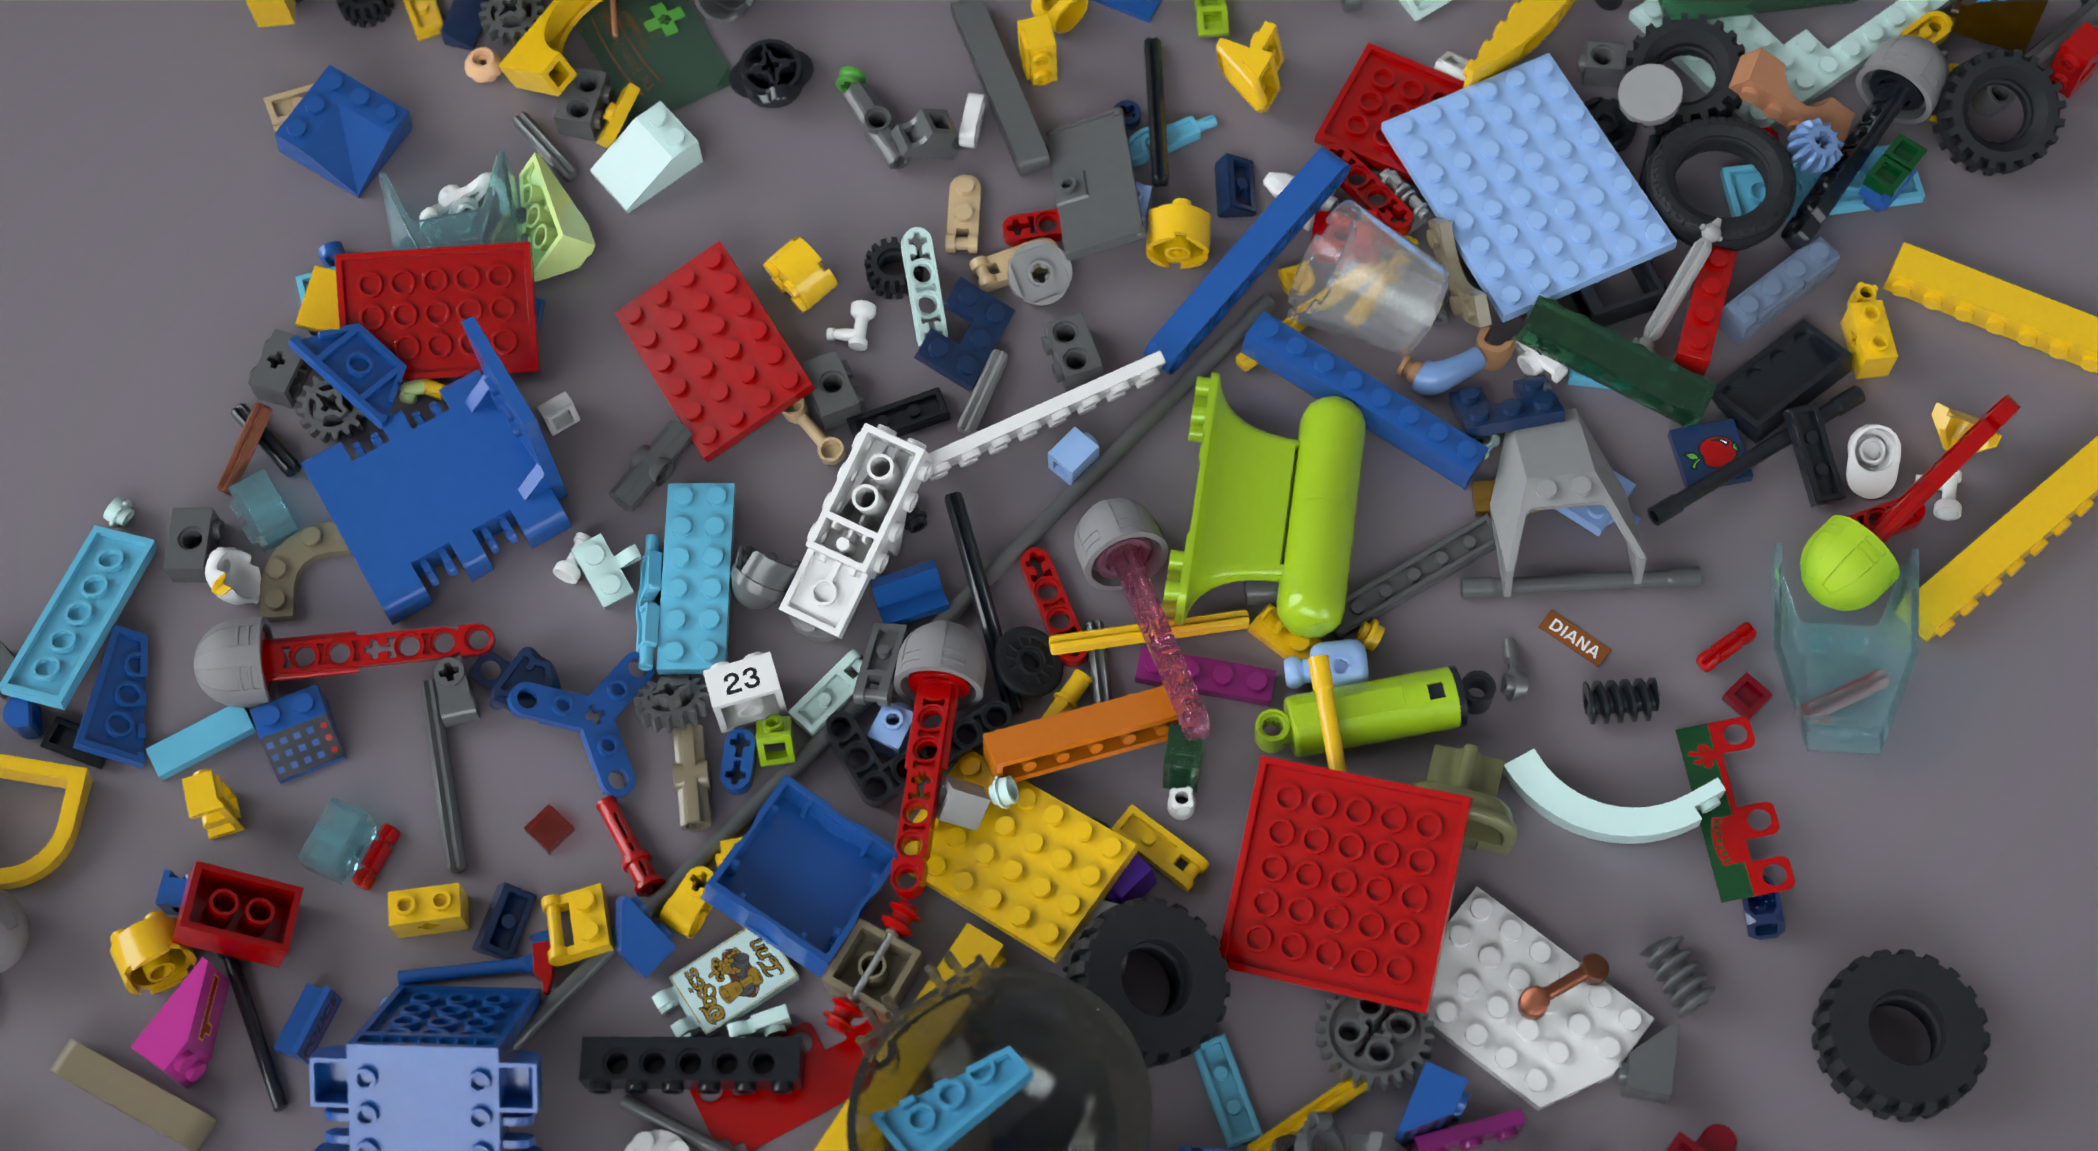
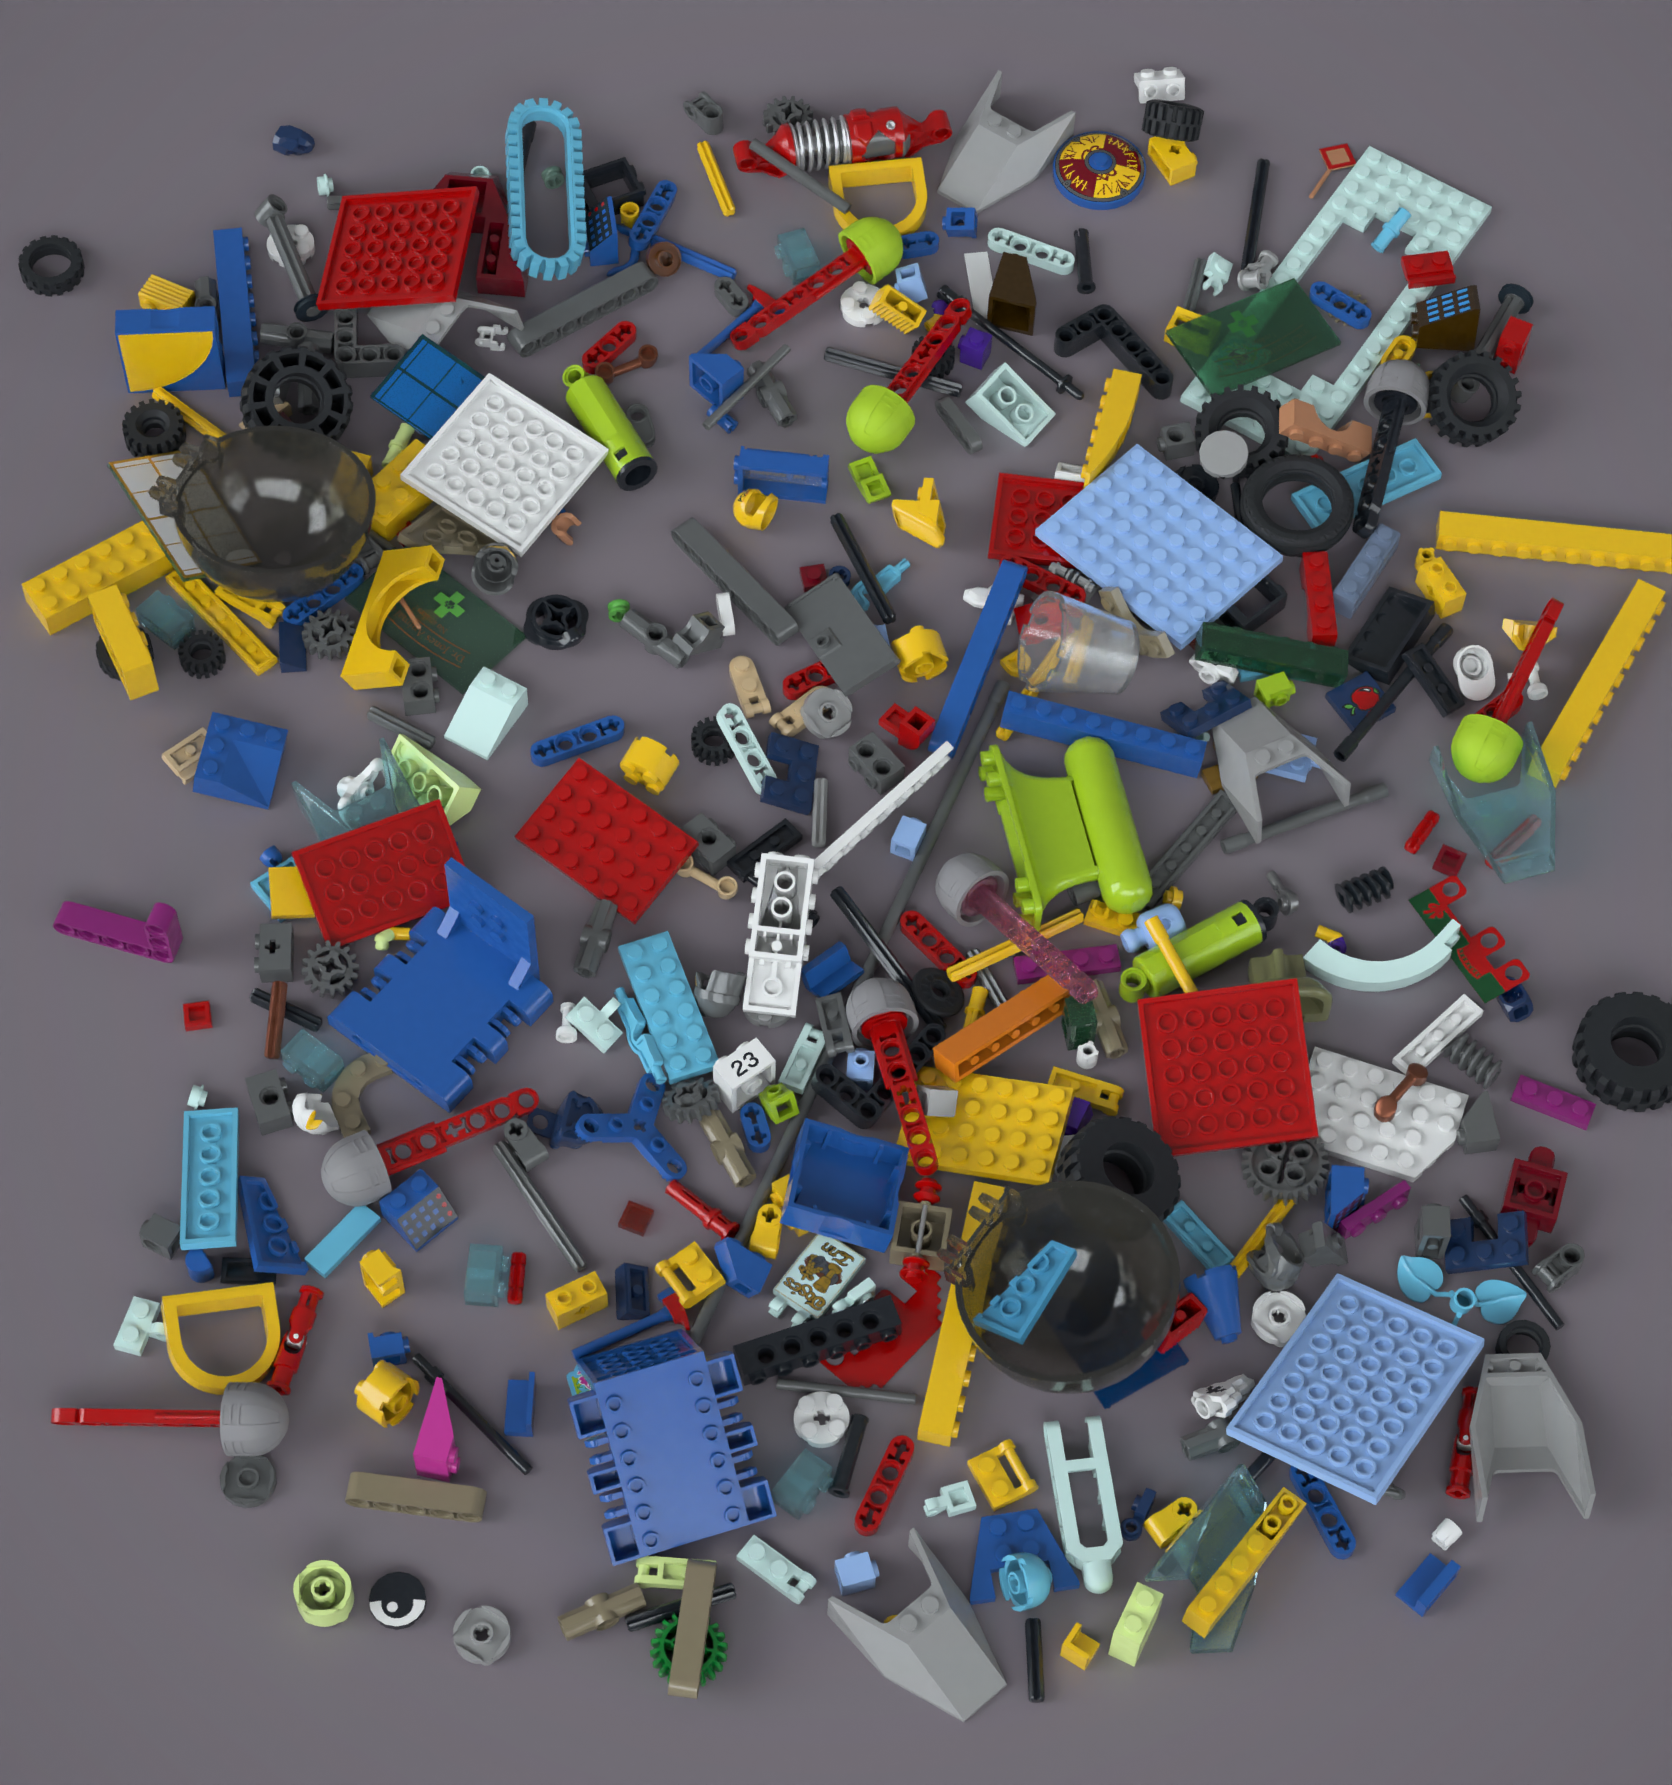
camera: 25 degrees left, 5 degrees down
(100, 832) = (301, 1322): none -> red piece
(143, 299) = (153, 939): none -> magenta beam
(167, 416) = (197, 1015): none -> red tile
(237, 914) = (441, 1344): red brick -> none
(355, 367) = (342, 932): blue wing -> none
(486, 72) = (322, 686): light nougat plate -> none
(616, 115) = (450, 687): yellow plate -> none
(737, 226) = (579, 744): none -> blue beam
(862, 312) = (703, 780): white piece -> none
(1004, 791) = (963, 1083): light aqua plate -> none
(1037, 50) = (756, 547): yellow window -> none
(1095, 103) = (812, 576): none -> dark red plate
(1129, 317) = (909, 727): none -> red brick
(1221, 763) = (1108, 1024): none -> dark tan piece
(1235, 187) = (942, 608): dark blue slope -> none
(1439, 376) = (1152, 700): piece -> none
(1558, 752) = (1333, 938): none -> arm
(1575, 638) = (1315, 858): dark orange sticker -> none
(1604, 407) = (1274, 689): none -> lime brick
(1646, 923) = (1439, 1034): none -> white plate
(1680, 284) = (1296, 585): light grey wheel -> none
(1766, 1065) = (1553, 1102): none -> magenta plate
(1814, 146) = (1354, 459): medium blue gear -> none
(1891, 173) = (1415, 464): dark green hips -> none

